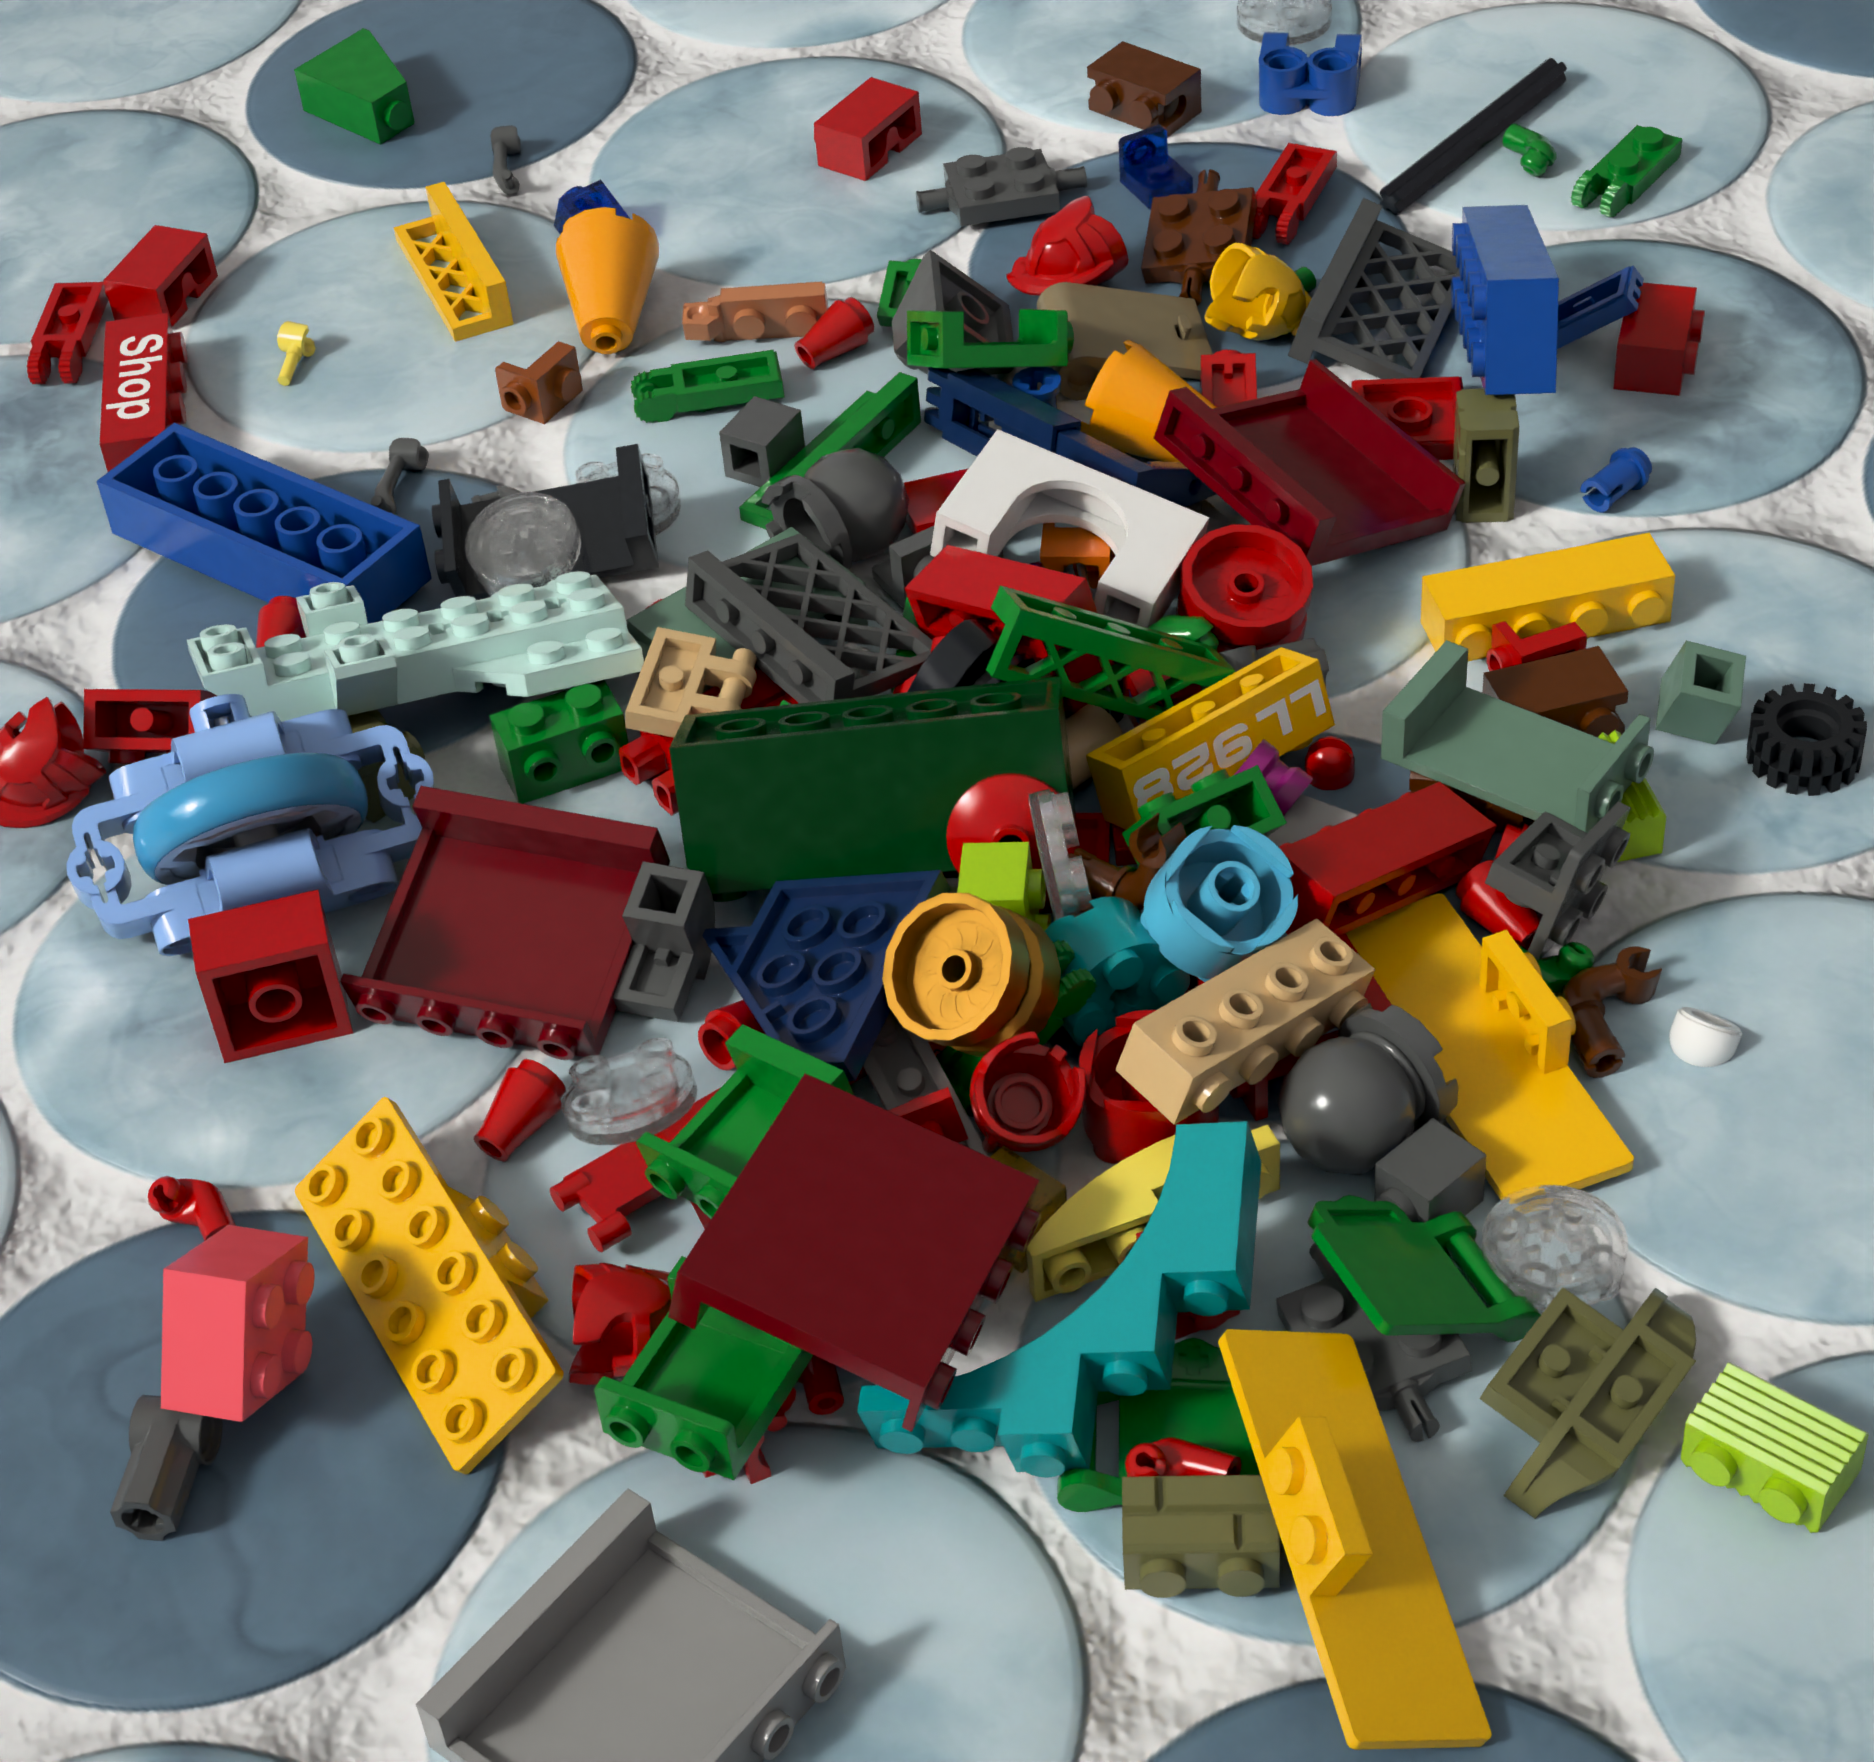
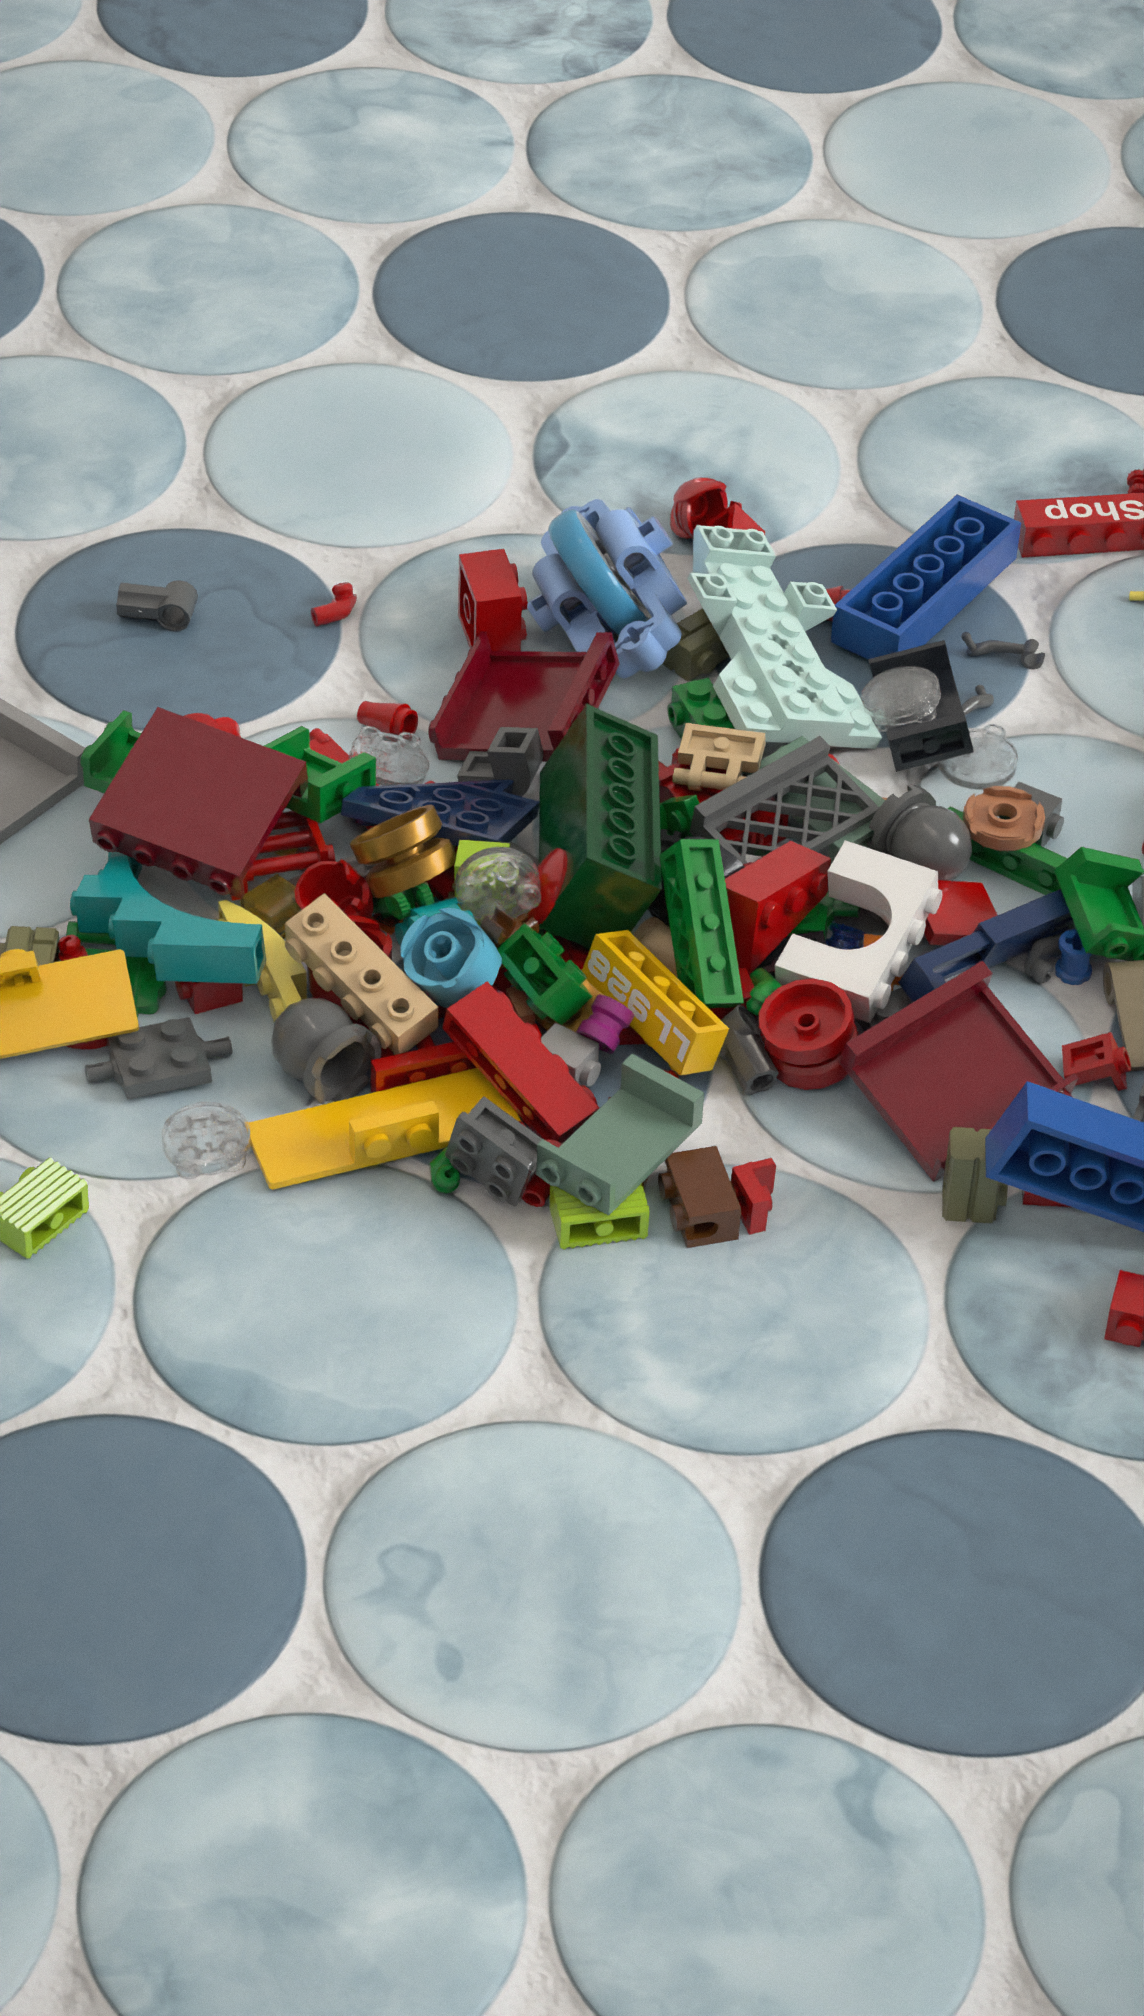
camera: 85 degrees right, 0 degrees up
(235, 1322) = (216, 599): coral brick -> none
(434, 1283) = (273, 694): yellow bracket -> none
(543, 386) = (1105, 710): dark orange bracket -> none
(706, 385) = (1110, 796): green hinge -> none
(777, 439) = (1003, 834): none -> nougat tile
(1130, 401) = (1052, 997): light orange cone -> none
(1405, 1271) = (179, 1051): green piece -> none
(1432, 1174) = (263, 1085): dark grey brick -> none
(1584, 992) = (402, 1176): reddish brown piece -> none
(1588, 1391) = (102, 1140): olive plate -> none
(1596, 585) = (821, 1209): yellow brick -> none
(1626, 471) = (982, 1277): blue pin -> none
(1700, 692) = (692, 1262): sand green brick -> none
(1703, 1037) = (383, 1226): white piece -> none
(1806, 763) = (656, 1309): black tyre -> none

